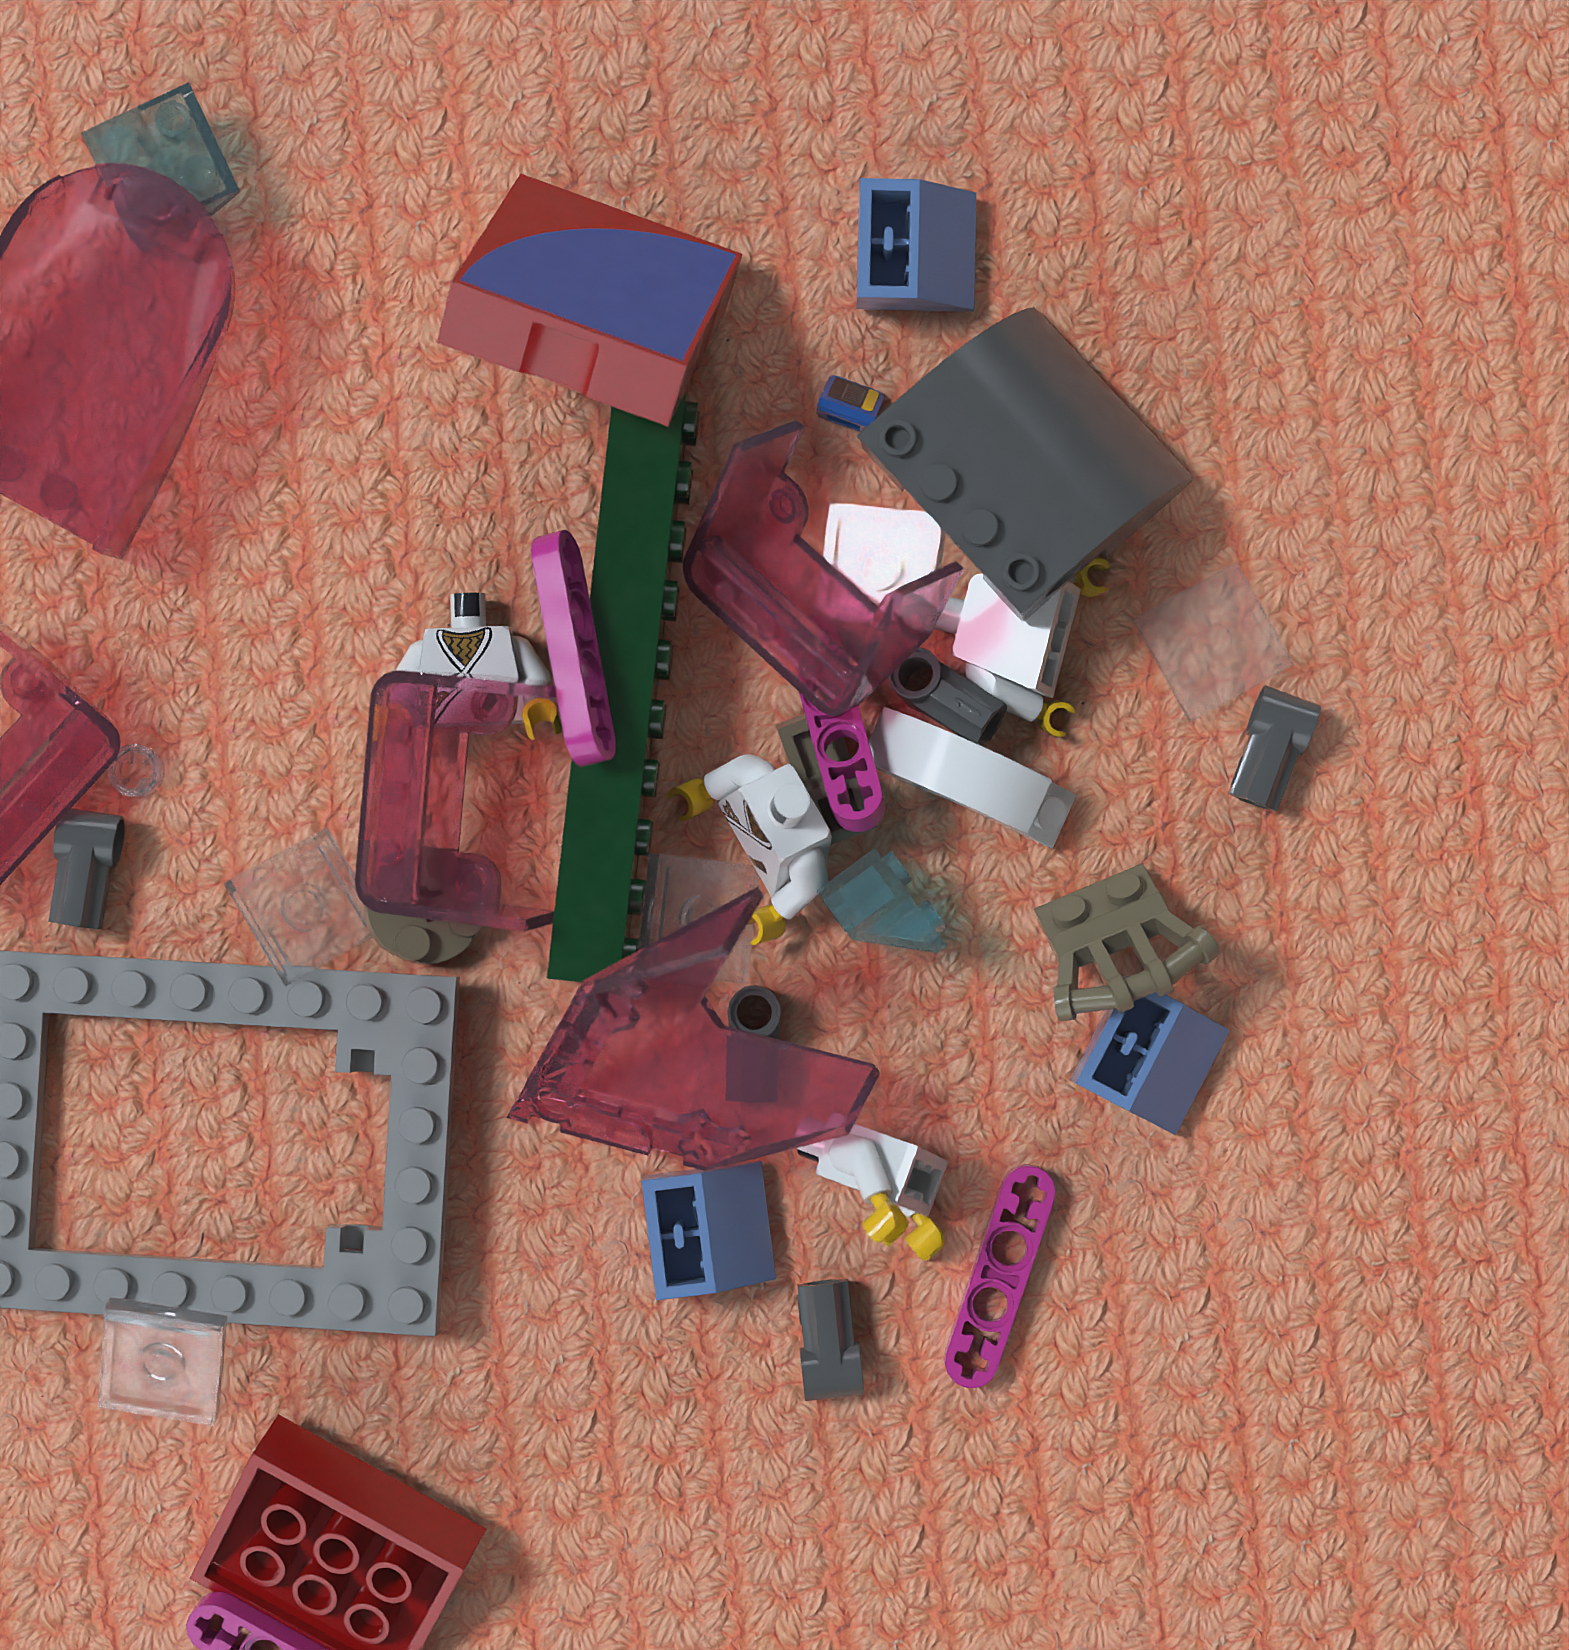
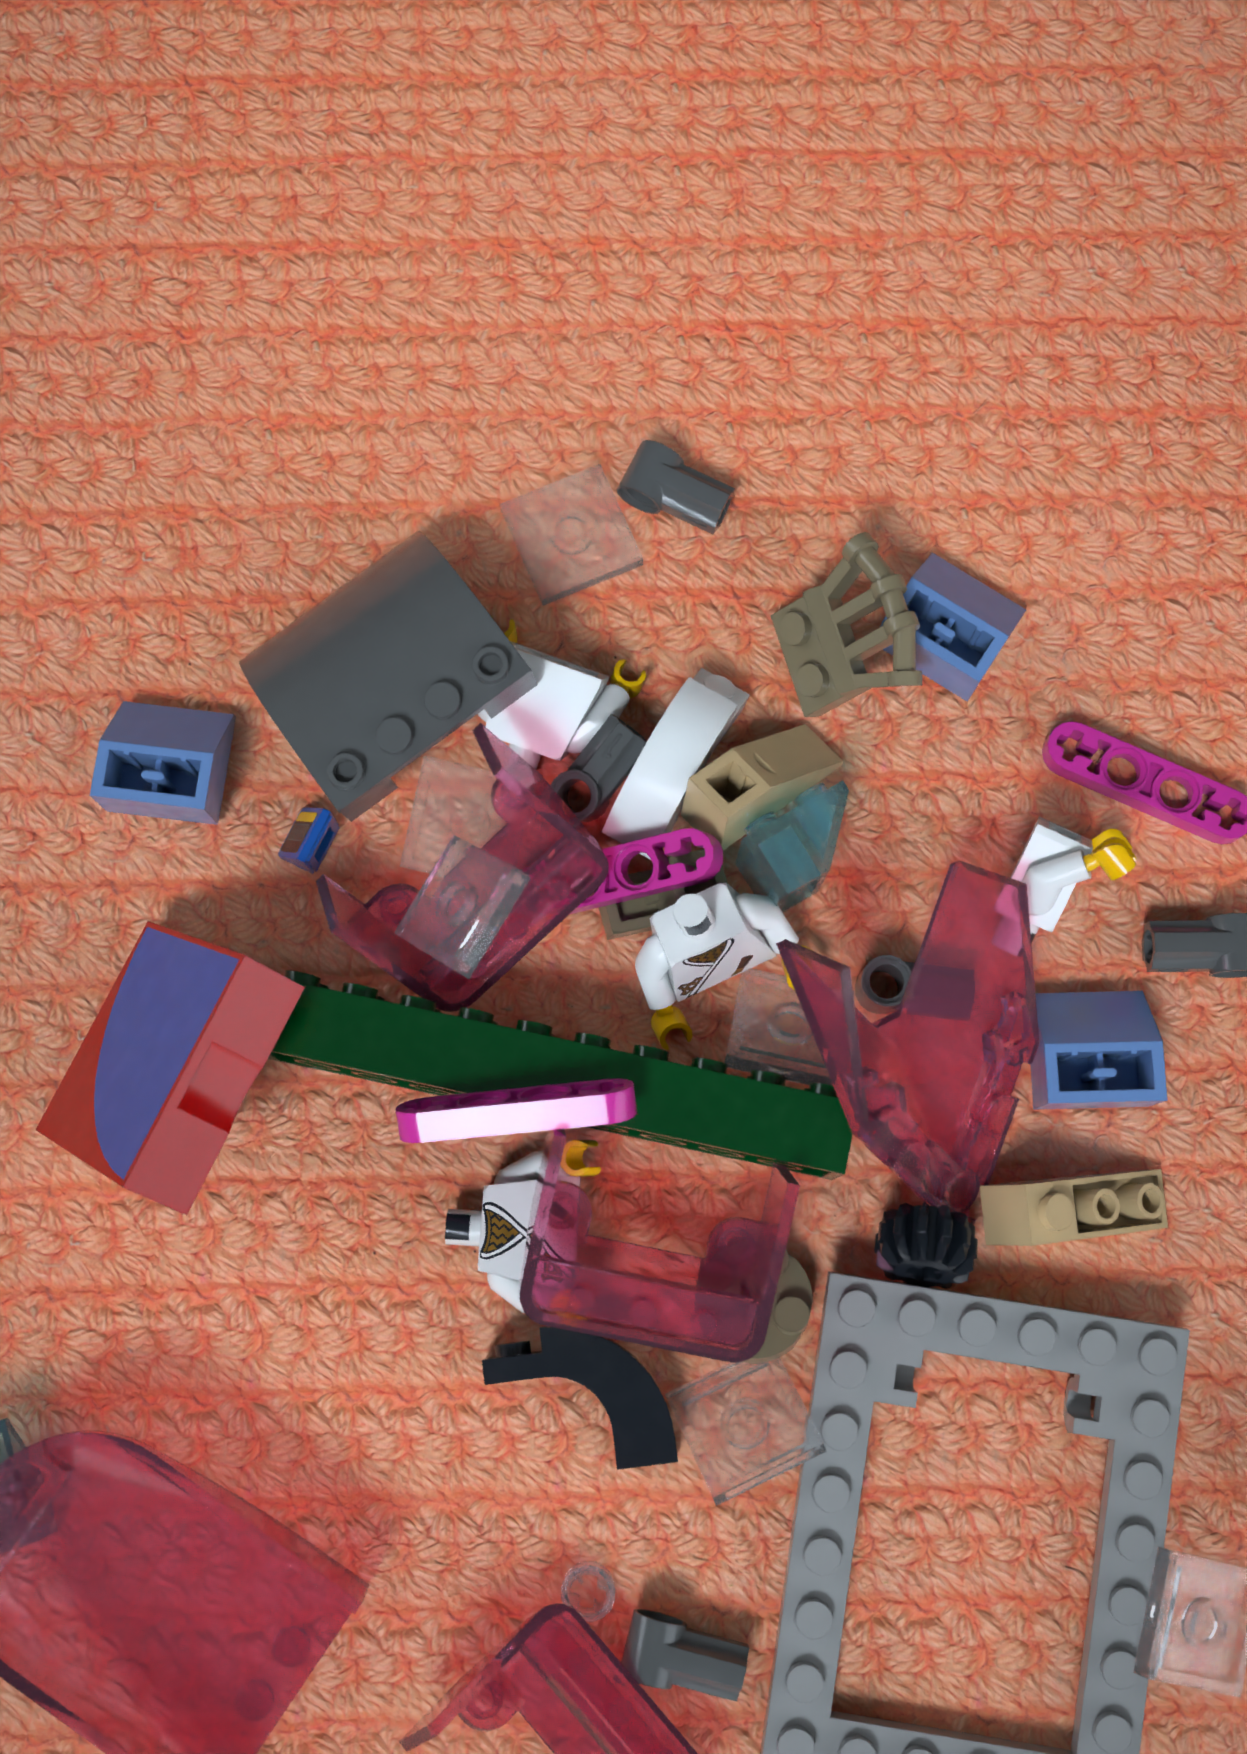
camera: 85 degrees left, 10 degrees down
(334, 780) = (623, 1385): none -> black arch
(492, 1070) = (926, 1245): none -> black gear
(547, 1219) = (1073, 1207): none -> tan slope
(784, 571) = (462, 906): none -> clear tile
(950, 864) = (755, 781): none -> tan slope

